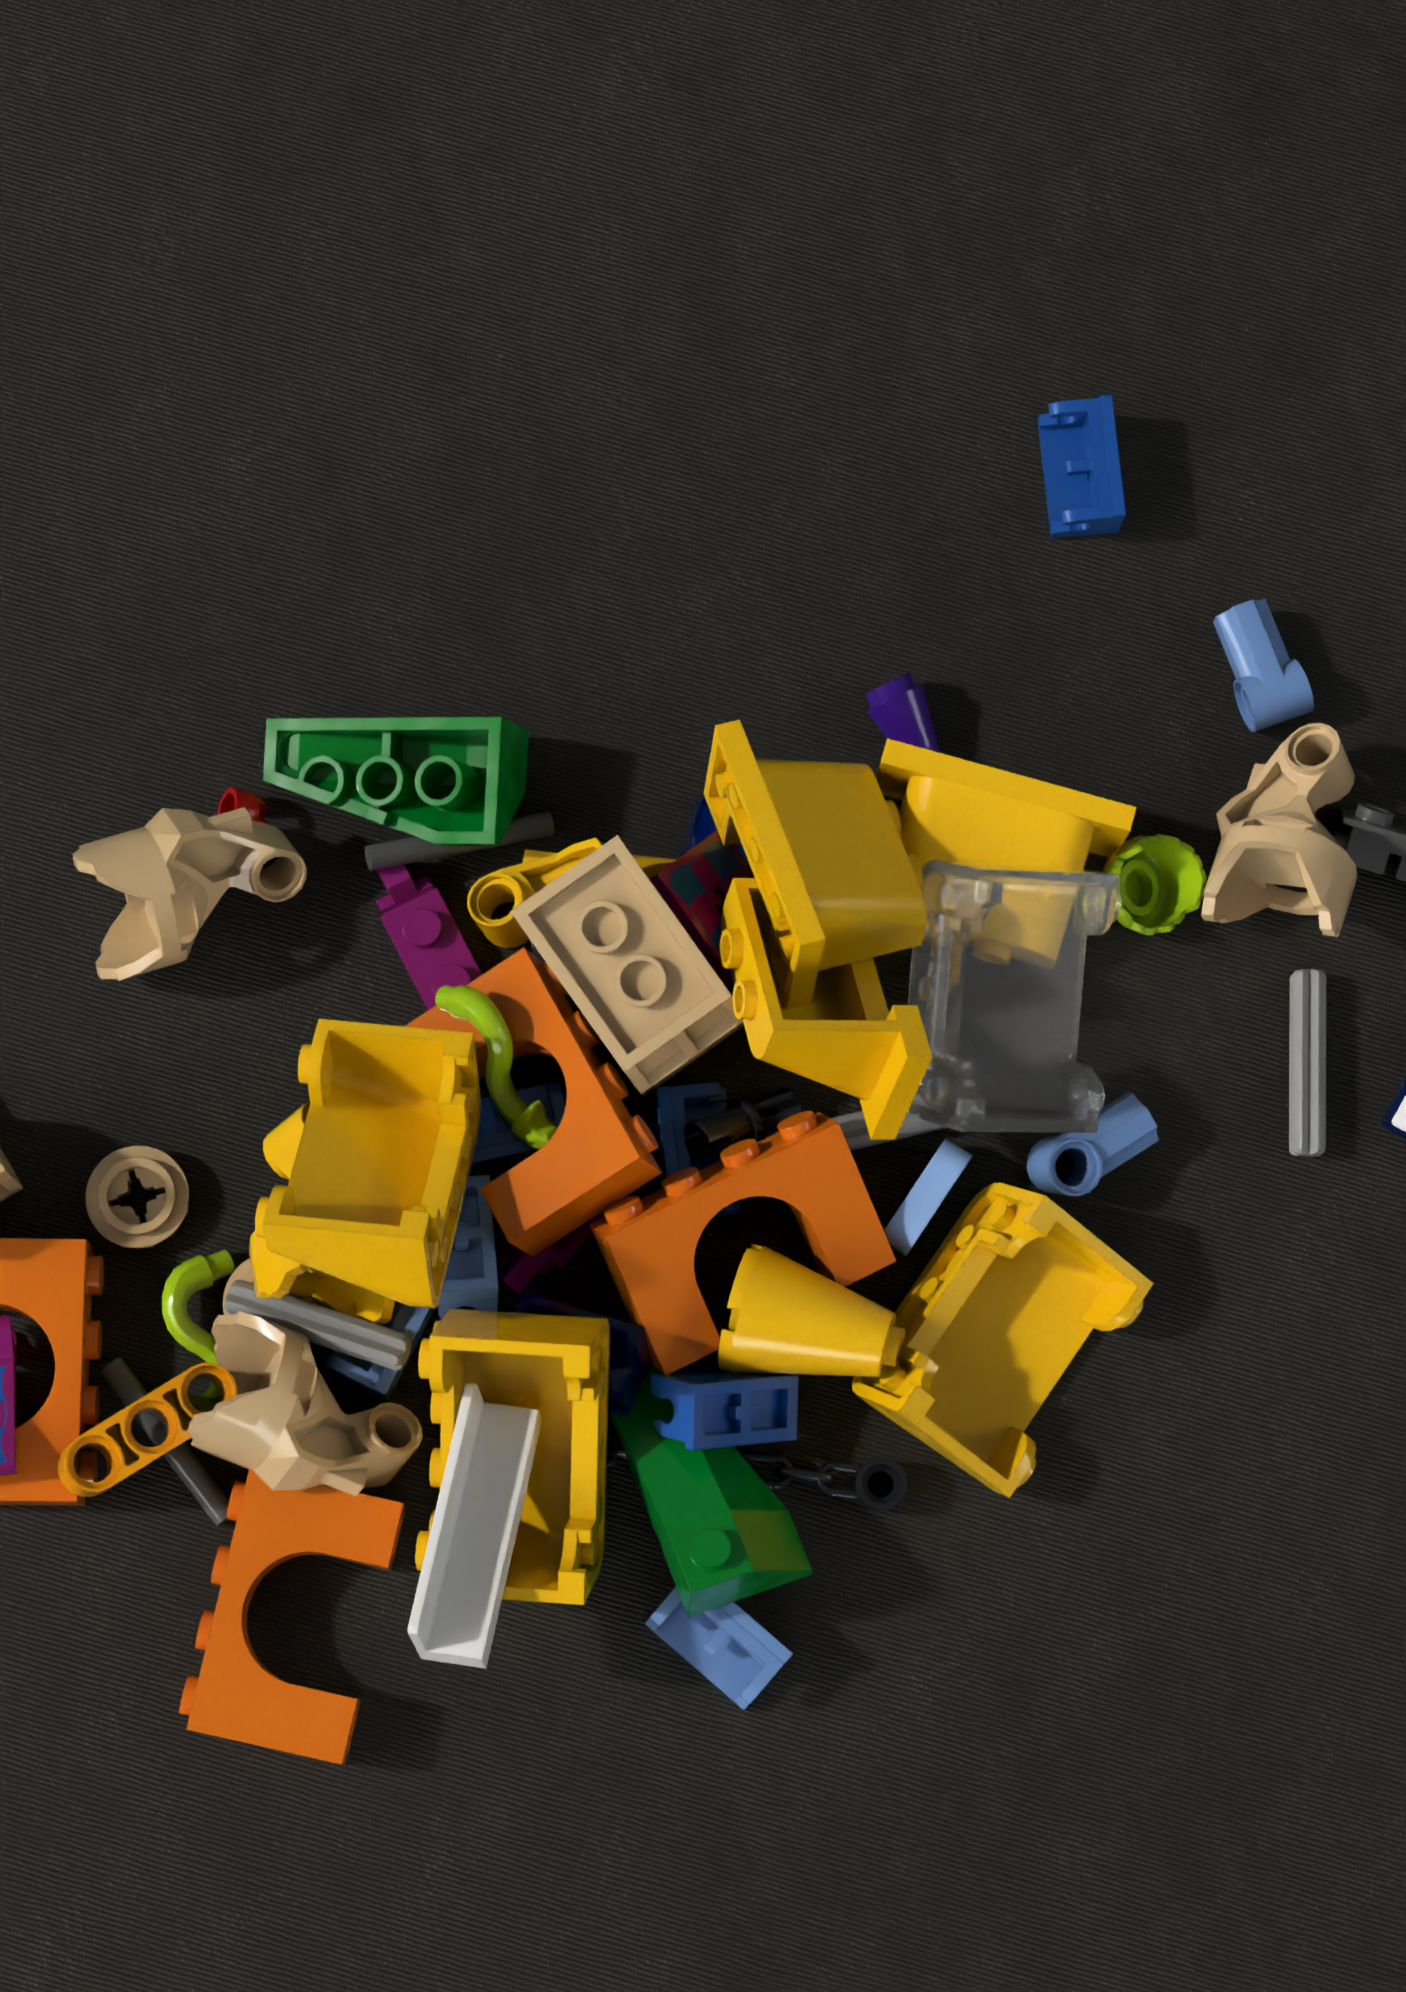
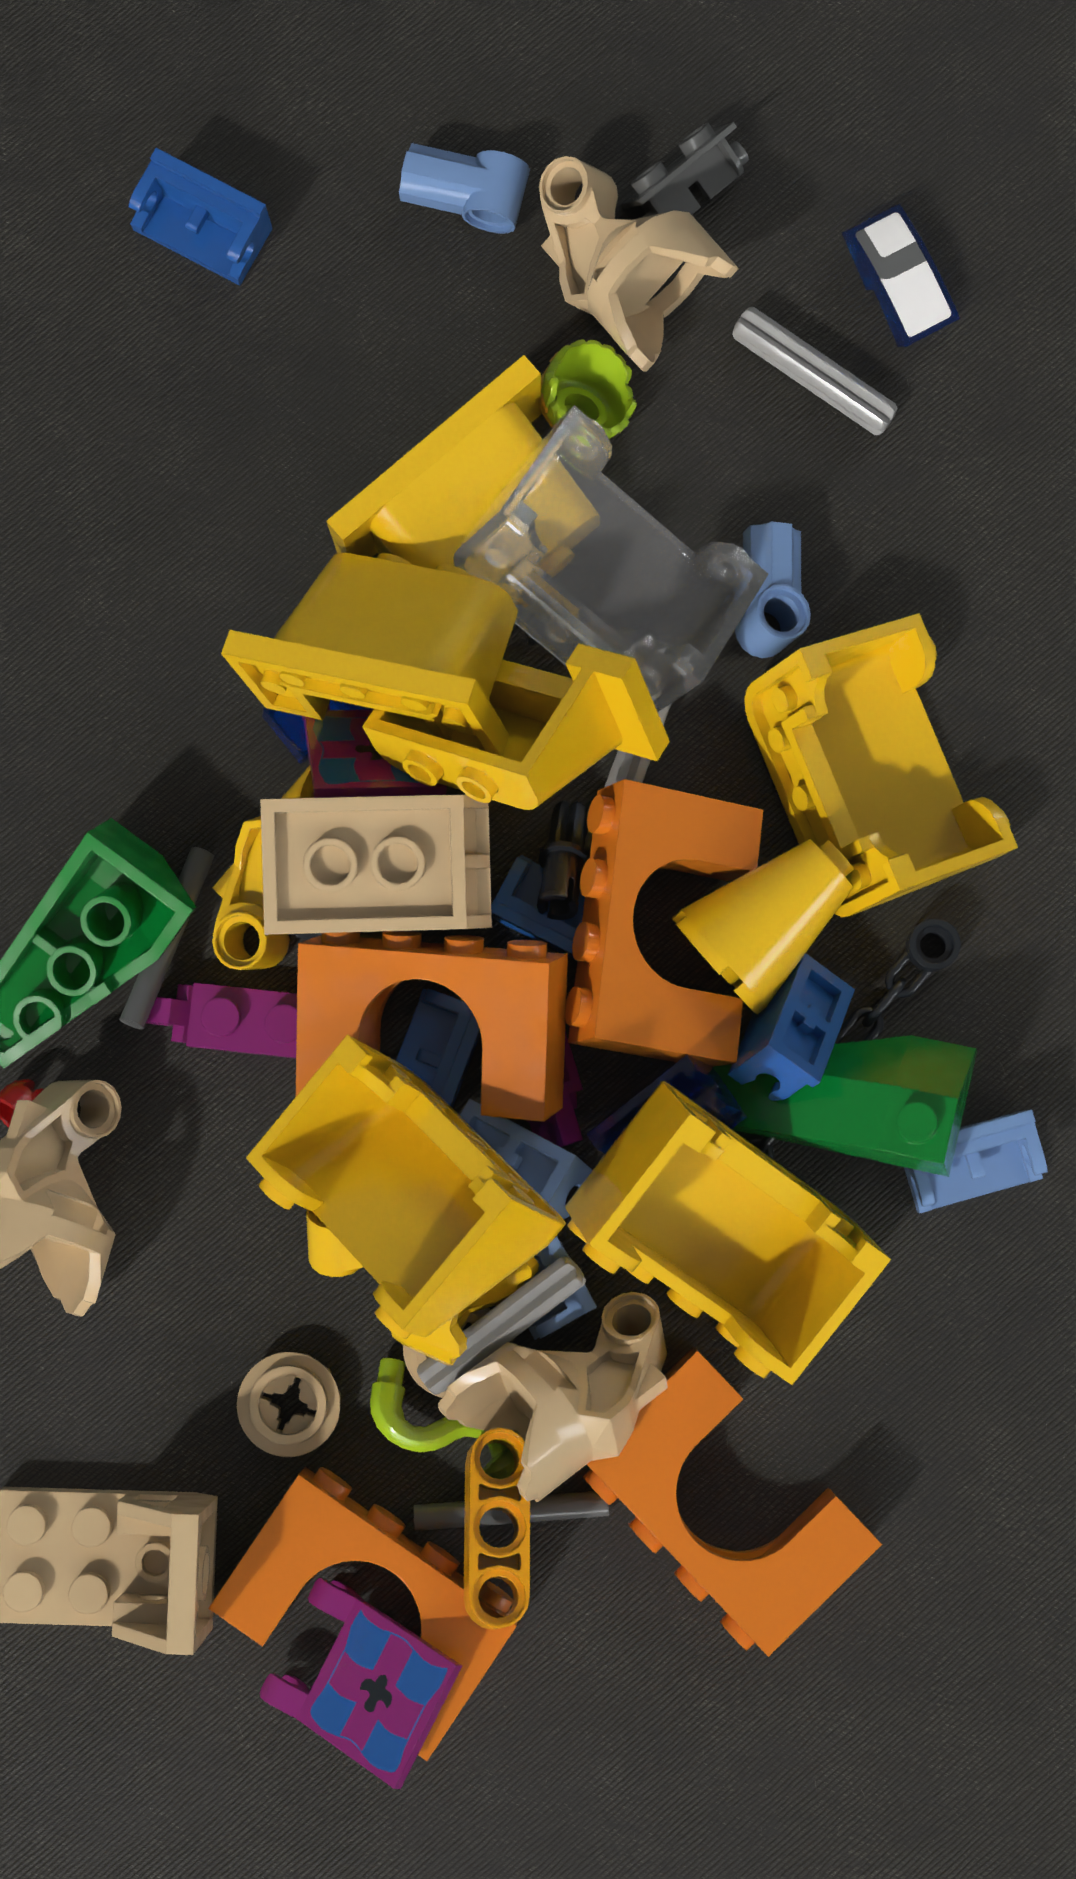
camera: 45 degrees left, 5 degrees up
(473, 1531) = (770, 1310): white panel -> none
(474, 1006) = (324, 1017): lime animal -> none
(903, 713) = (306, 501): dark purple cone -> none
(926, 1196) = (722, 749): light blue beam -> none

